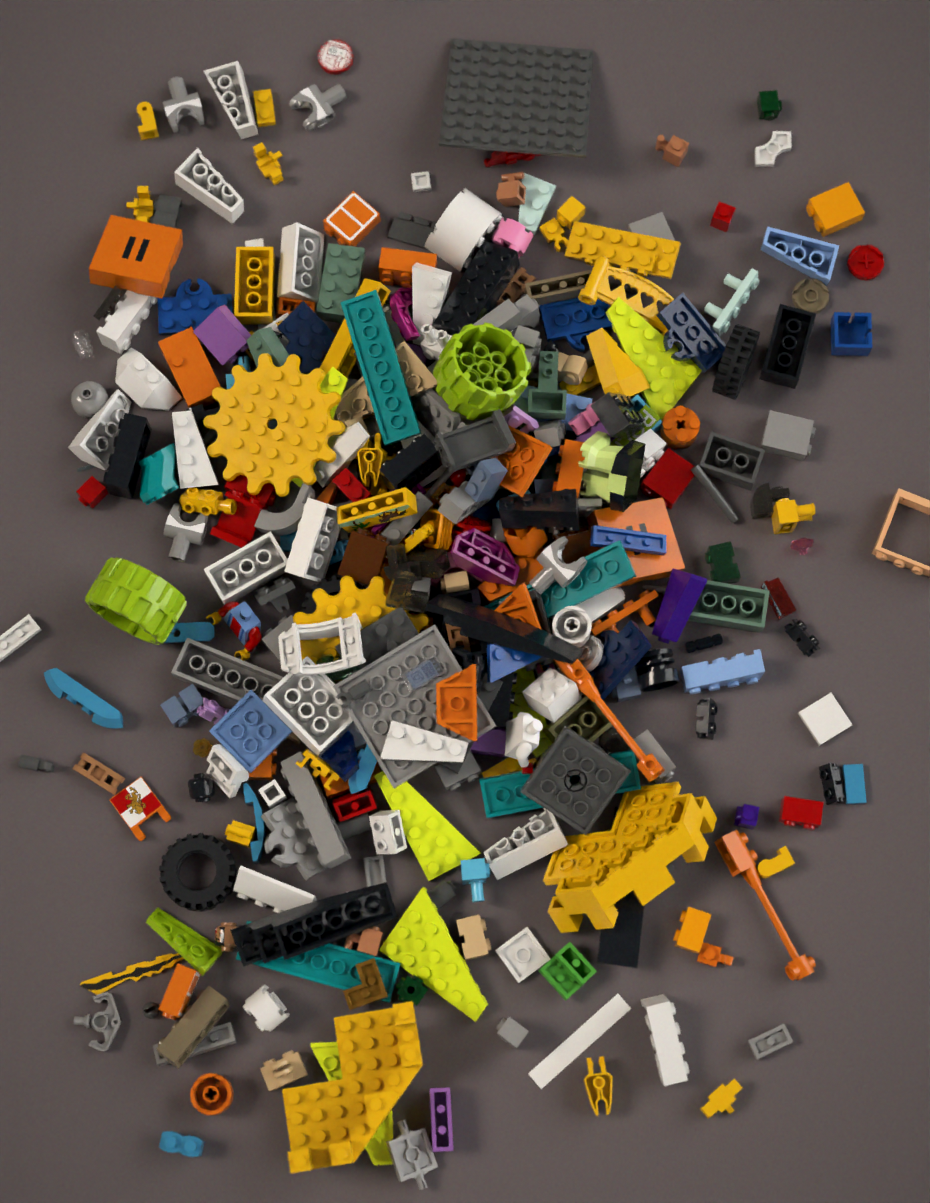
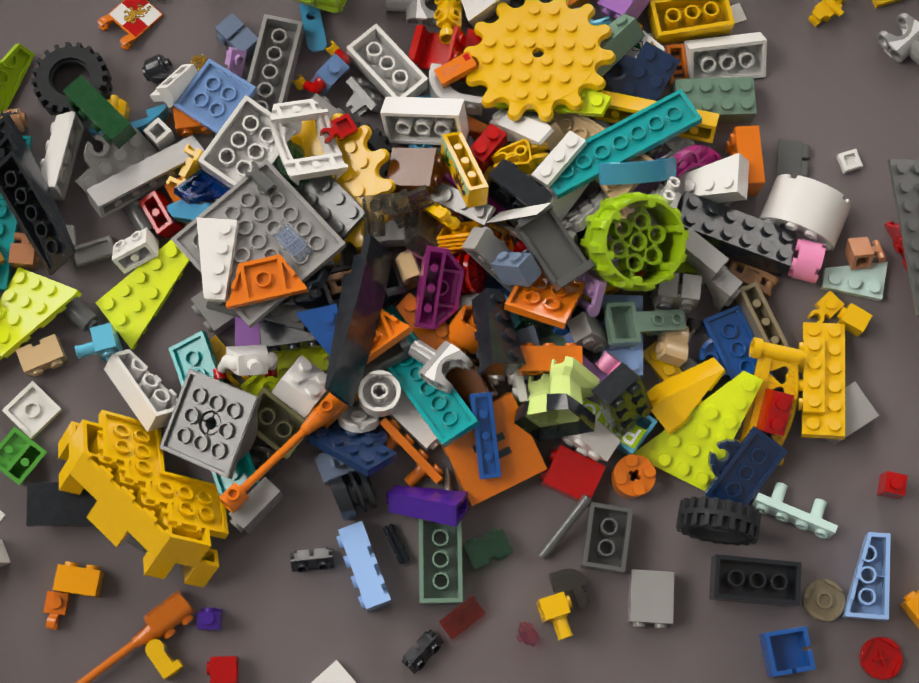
camera: 75 degrees right, 0 degrees up
(246, 841) = (99, 112): none -> dark green brick
(269, 502) = (456, 69): none -> orange tile
(314, 613) = (341, 128): none -> red plate
(351, 220) = (785, 98): orange brick -> none
(385, 424) = (559, 159): none -> white plate
(414, 358) = (637, 172): none -> dark azure slope
(436, 466) = (517, 213): none -> white sticker
(647, 294) = (774, 412): none -> red brick

